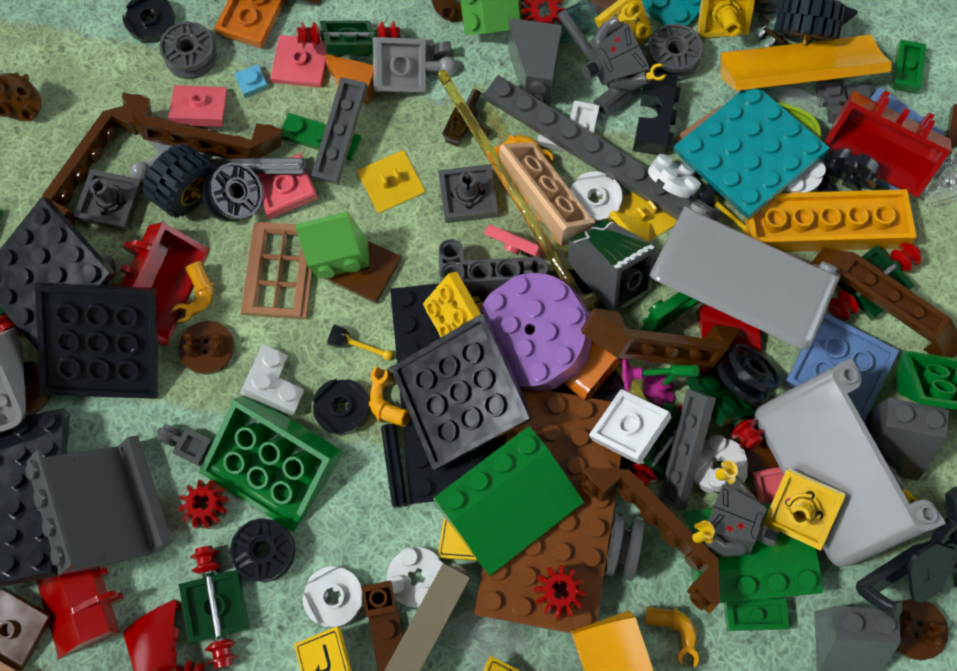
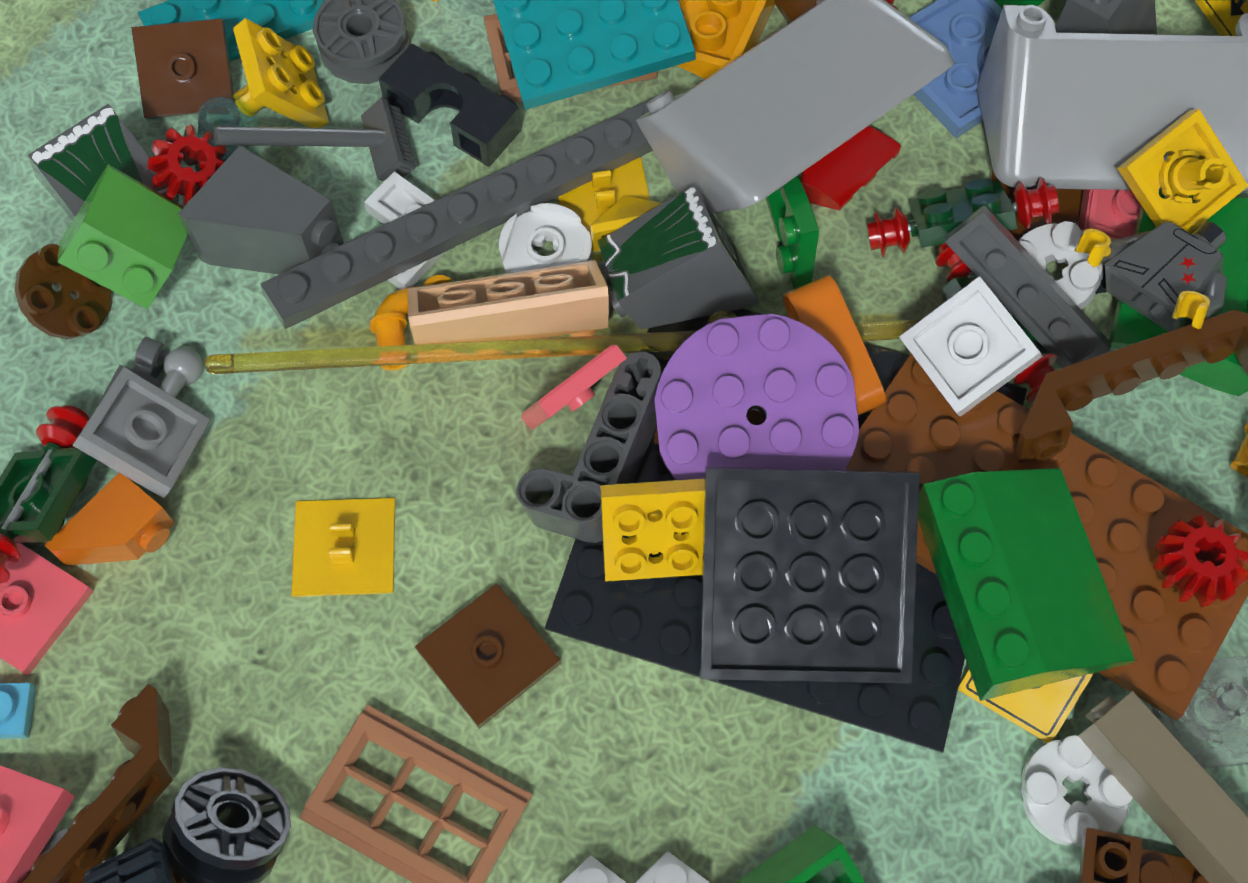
camera: 70 degrees left, 5 degrees down
(267, 165) = (198, 751): dark grey axle -> none
(286, 191) = (259, 726): coral plate -> none
(310, 133) = (191, 629): green plate -> none
(333, 245) = (436, 680): bright green slope -> none
(339, 130) = (212, 582): dark grey plate -> none
(340, 337) = (600, 745): hinge -> none
(341, 391) = (713, 825): black plate -> none
(383, 409) = (761, 728): light orange piece -> none
(394, 466) = (868, 750): black axle -> none
(456, 126) = (301, 388): dark brown piece -> none
(467, 184) = (439, 431): dark grey plate -> none
(610, 333) = (843, 285): reddish brown slope -> none
(618, 57) = (339, 96): dark grey torso -> none
(624, 546) = (1149, 439): dark grey wheel -> none
(657, 387) = (896, 298): dark pink plant -> none
(677, 178) = (574, 120): white plate -> none
(711, 198) = (626, 96): hinge -> none
(748, 374) = (938, 165): black wheel -> none

